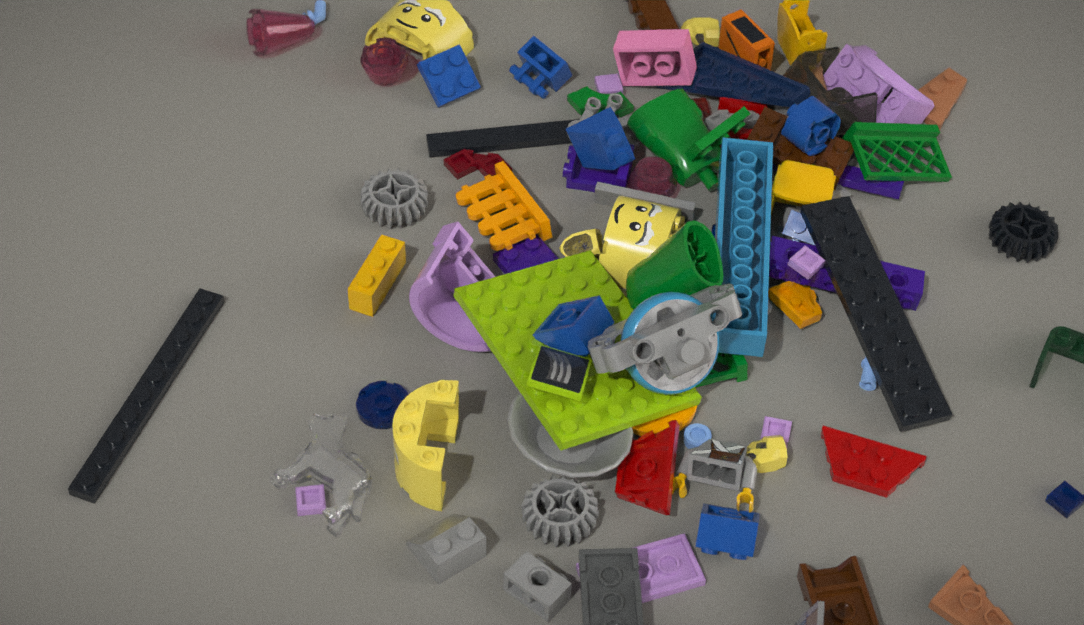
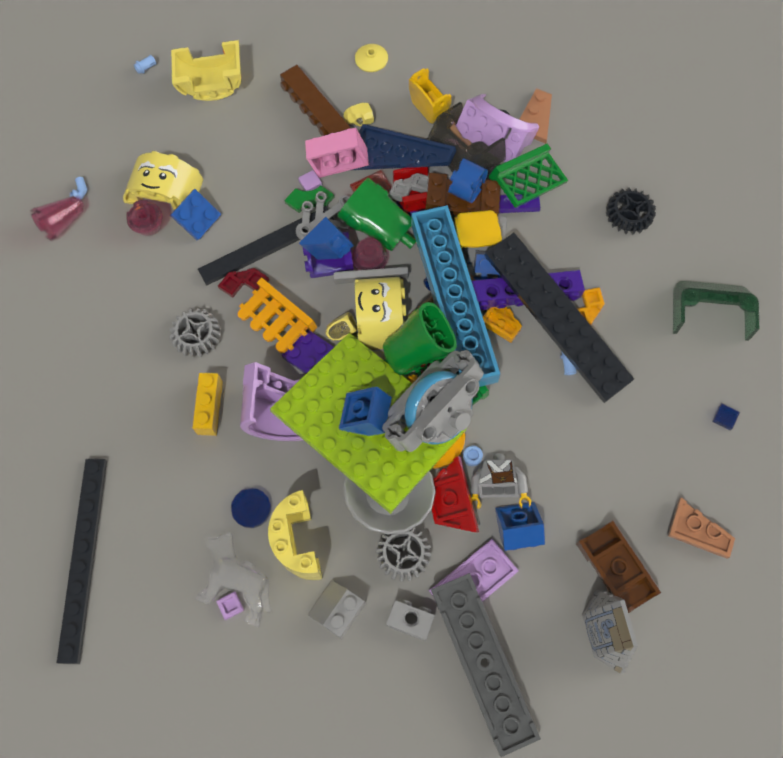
camera: 15 degrees left, 20 degrees up
(544, 64) = (260, 181): blue brick -> none
(559, 372) = (369, 456): slope -> none
(704, 145) = (406, 209): green plate -> none
(746, 39) = (394, 116): orange brick -> none
(768, 453) = (524, 454): light yellow rock -> none
(776, 426) = (522, 432): lavender tile -> none
(806, 262) = (502, 295): lavender tile -> none
(868, 463) = (590, 434): red wing -> none
(930, 321) = (593, 304): none -> light orange tile

